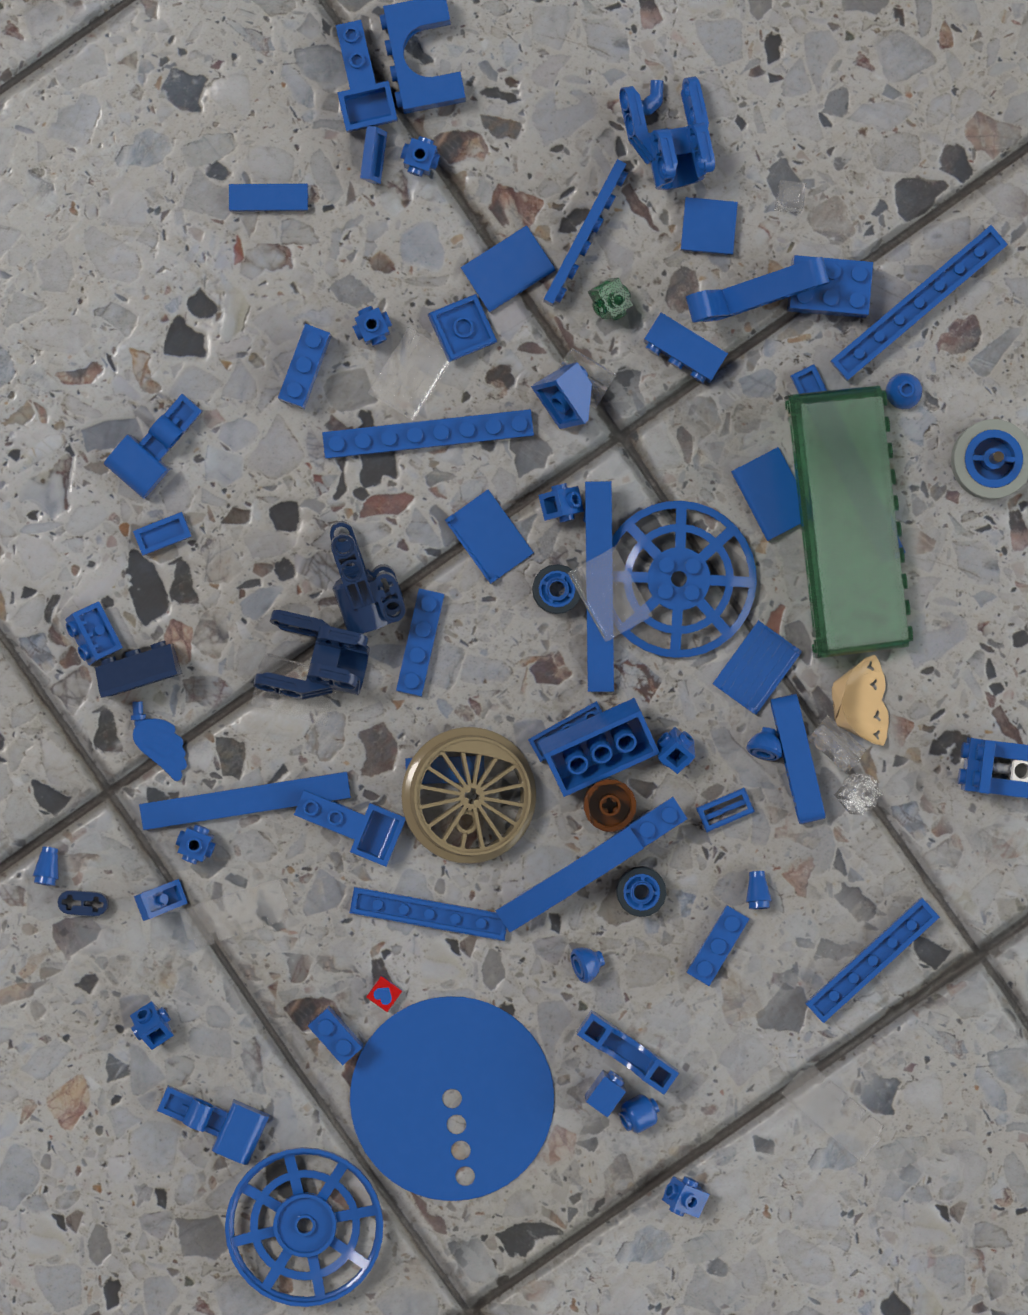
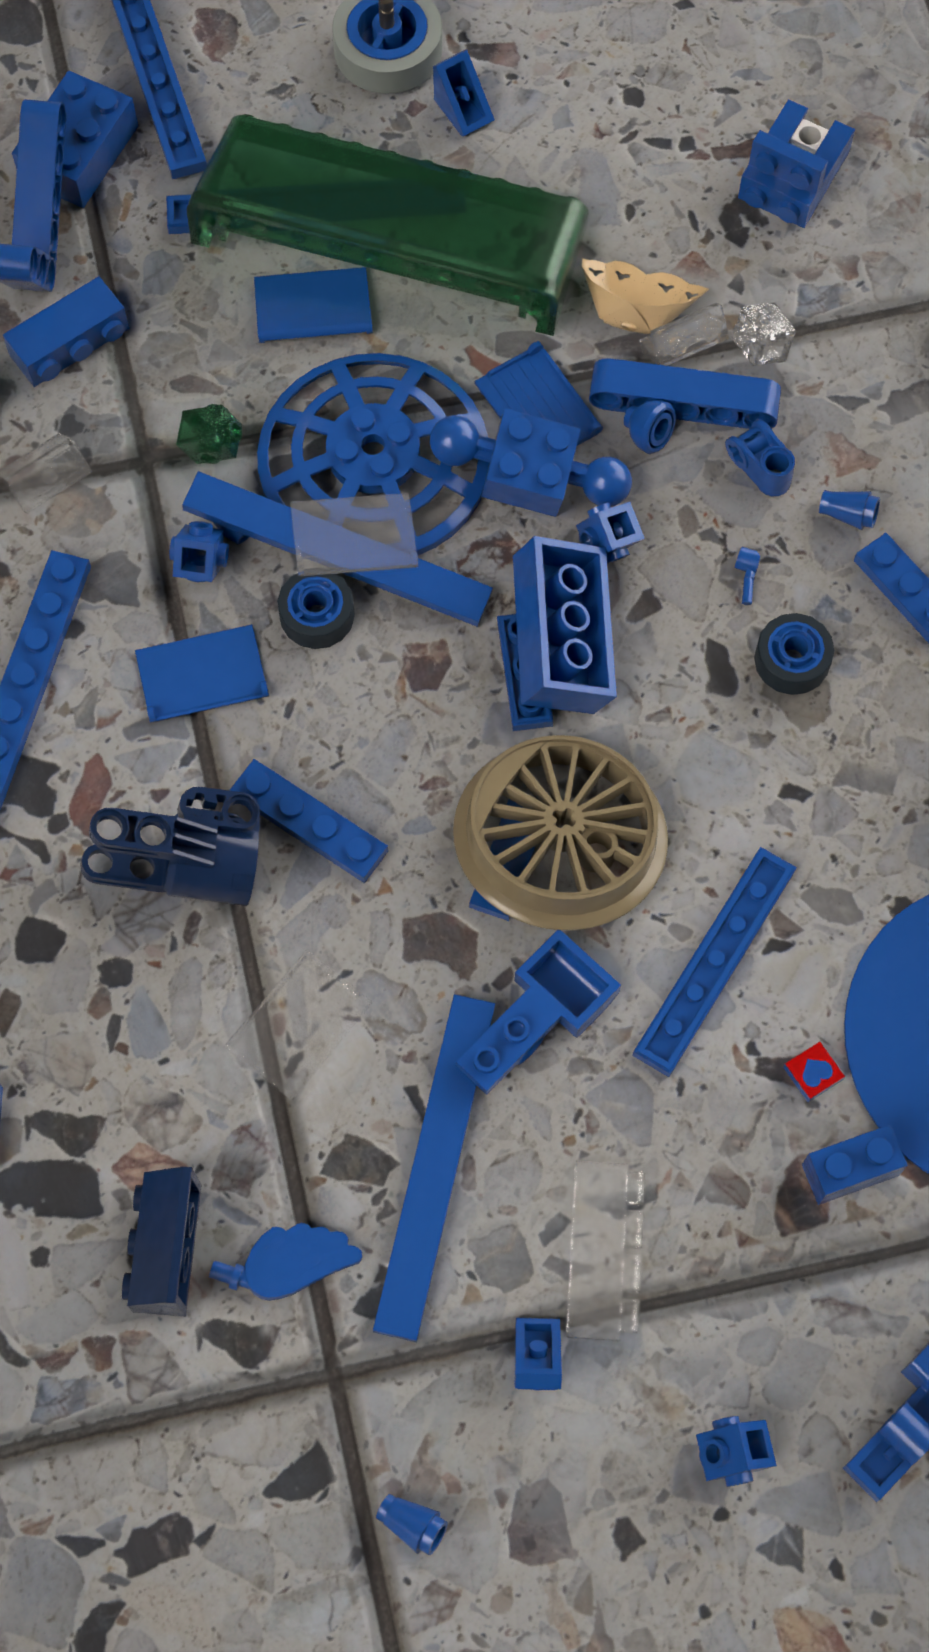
camera: 70 degrees left, 20 degrees down
(83, 909) = (483, 1483): dark blue beam -> none
(93, 633) = (75, 1295): blue bracket -> none
(205, 842) = (471, 1278): blue brick -> none
(336, 662) = (281, 942): dark blue piece -> none
(566, 395) = (54, 488): blue slope -> none
(586, 963) = (872, 766): blue brick -> none
(592, 865) = (719, 635): blue slope -> none
(621, 814) = (647, 666): reddish brown brick -> none
(646, 473) = (209, 434): none -> clear green brick
(696, 840) = (748, 561): none -> blue hand
(704, 682) = (530, 461): none -> blue brick
(745, 800) = (720, 540): blue tile -> none
(772, 822) = (758, 453): none -> blue piece
(904, 391) = (255, 102): blue brick -> none
(966, 528) = (461, 93): none -> blue slope

